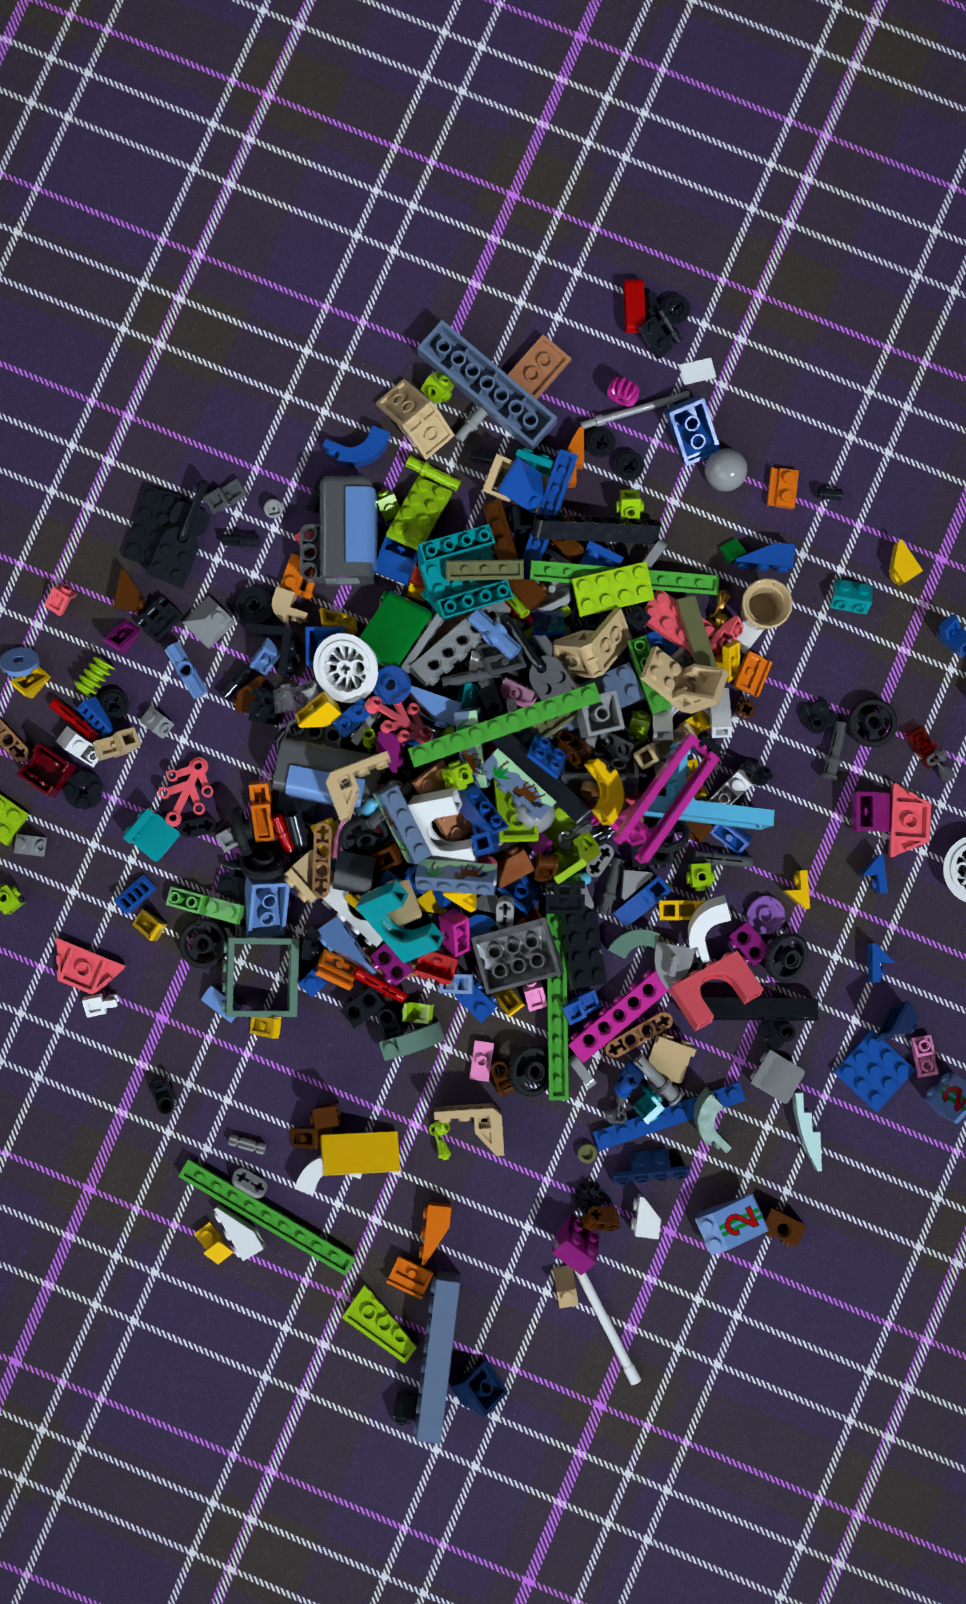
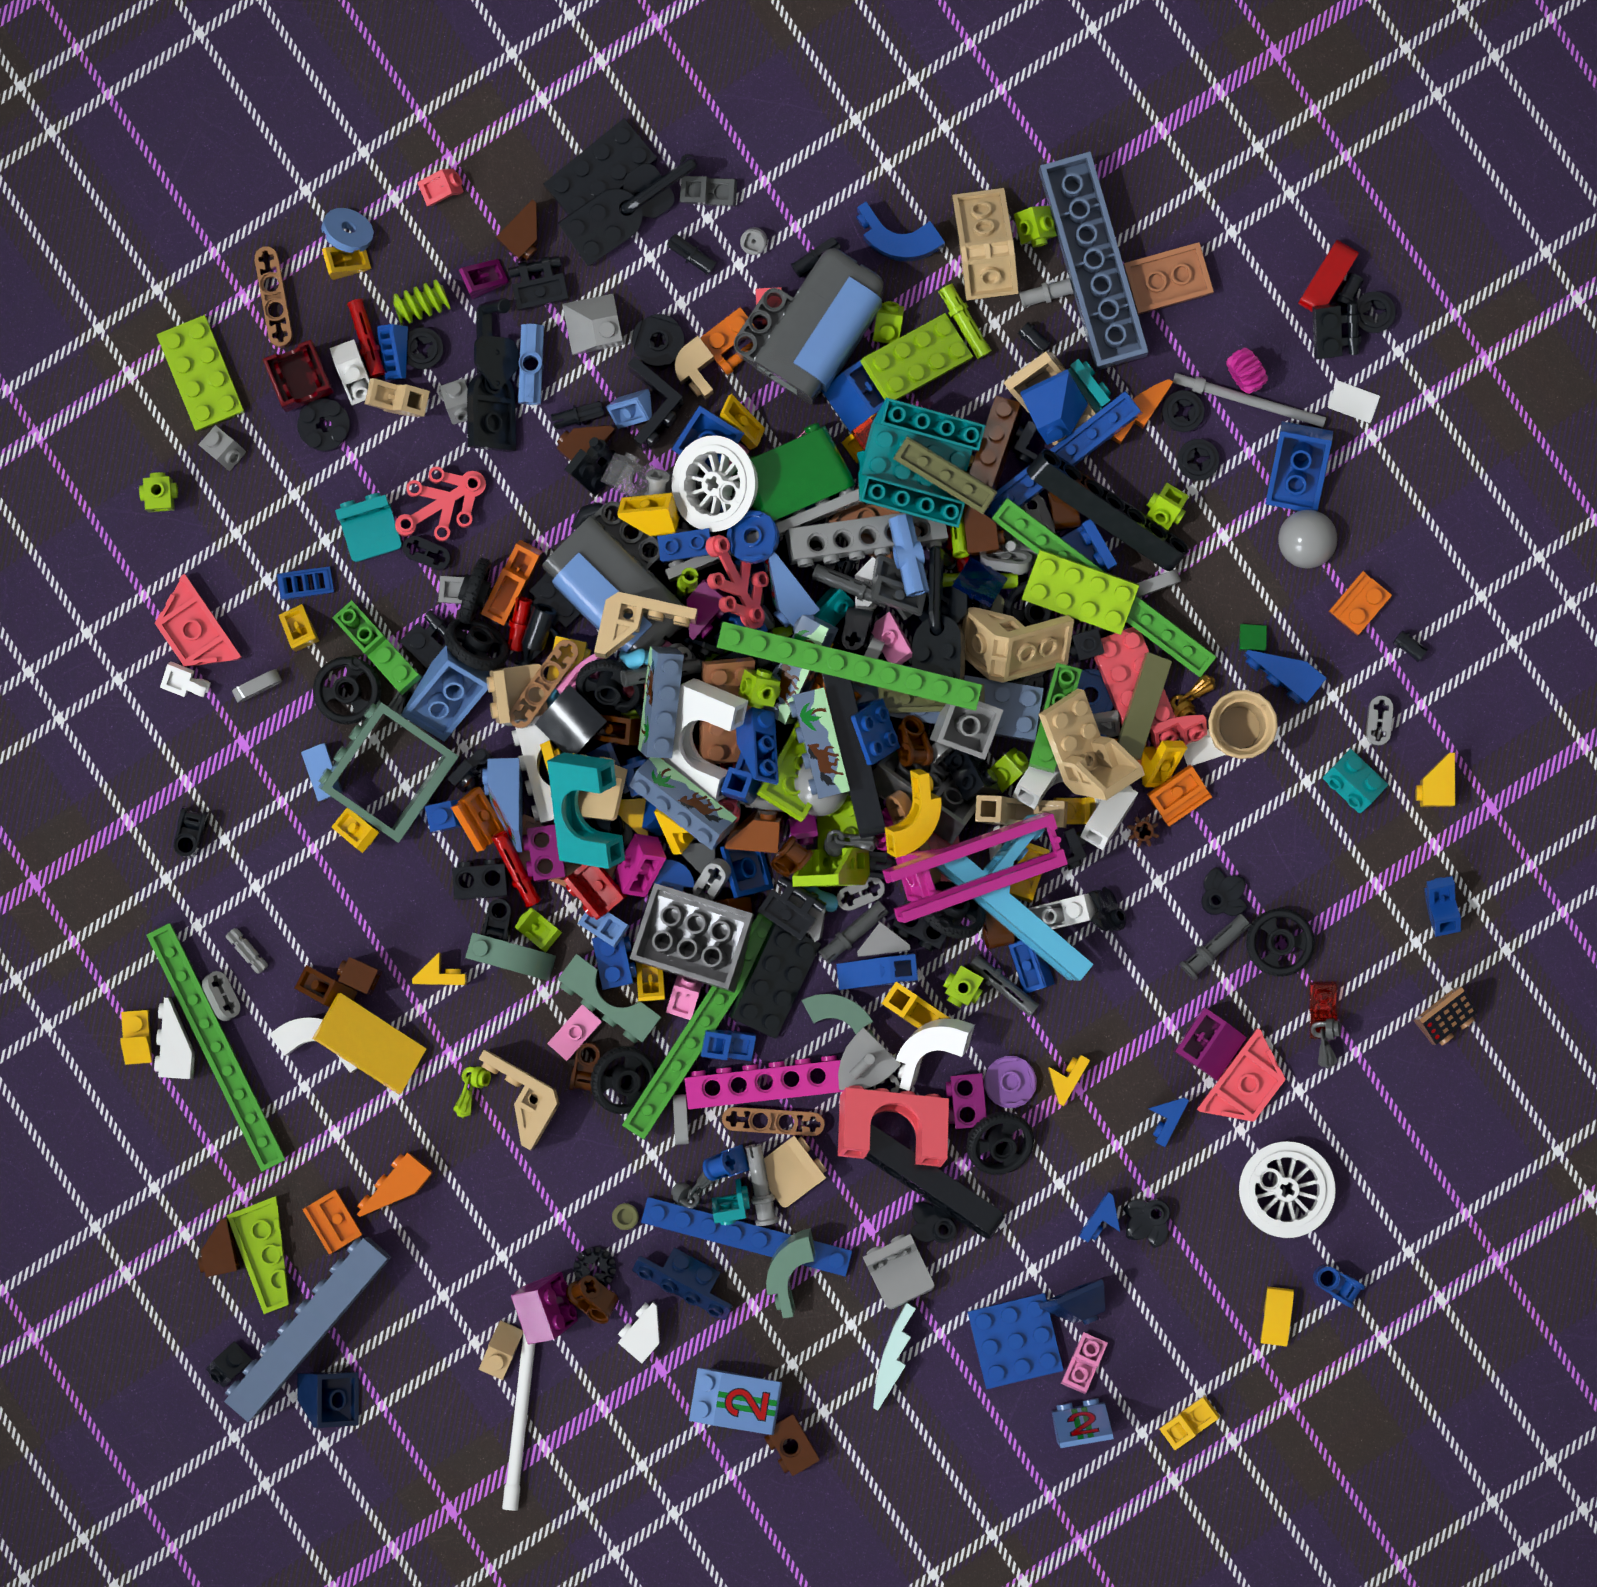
camera: 40 degrees right, 0 degrees up
(146, 977) = (256, 686): none -> light grey beam
(172, 703) = (490, 393): none -> black plate
(352, 1343) = (219, 1252): none -> reddish brown slope
(371, 1084) = (431, 974): none -> yellow slope
(513, 1029) = (581, 979): none -> sand green arch
(837, 553) = (1372, 720): none -> light grey beam
(904, 947) = (1143, 1222): none -> black plate

